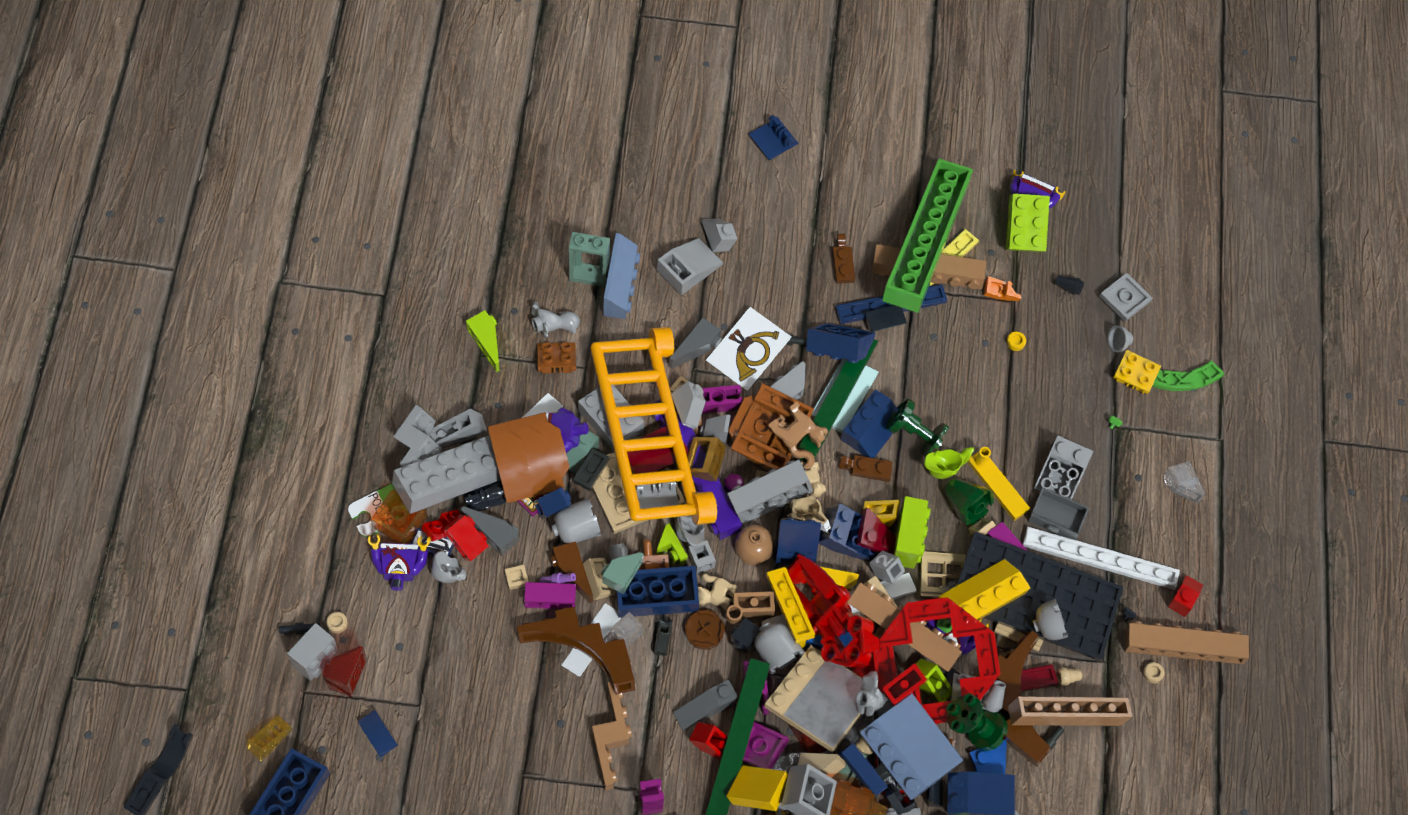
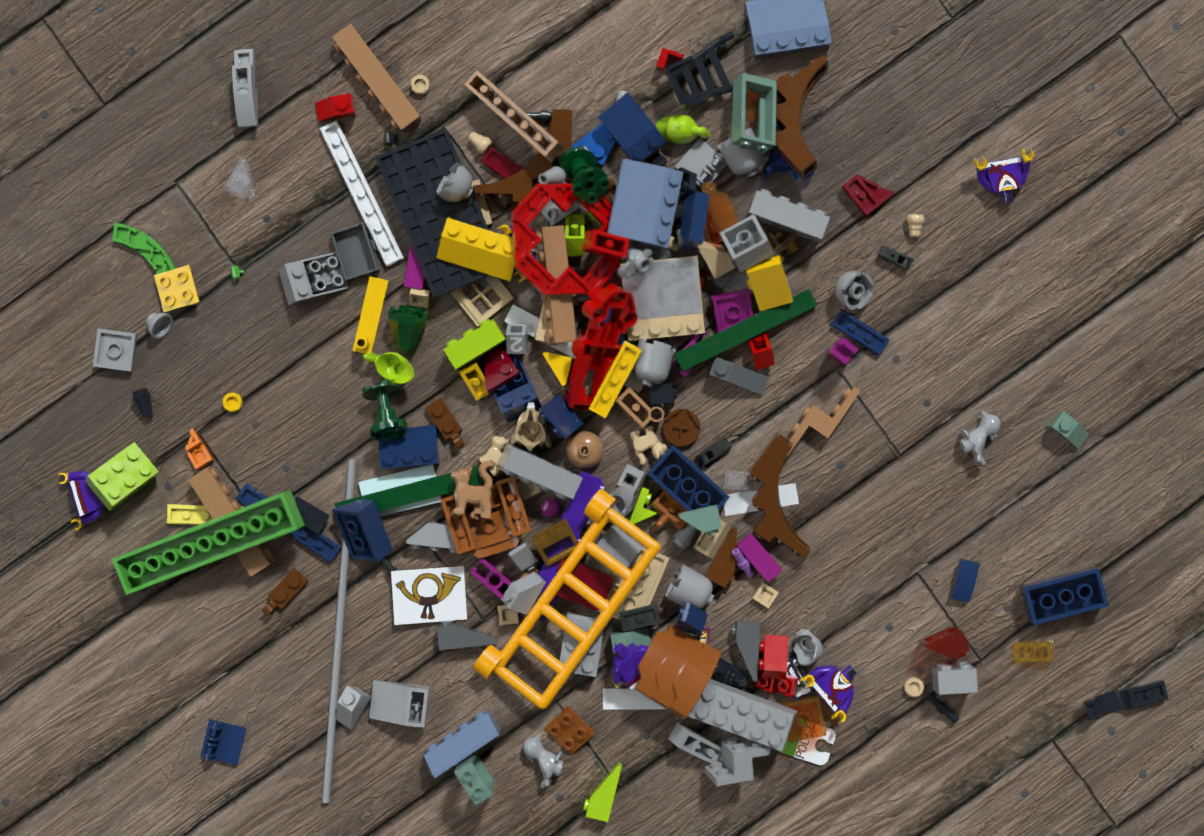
camera: 125 degrees left, 25 degrees up
(776, 267) = (337, 647): none -> light grey piece
(1256, 539) = (244, 88): none -> light grey slope

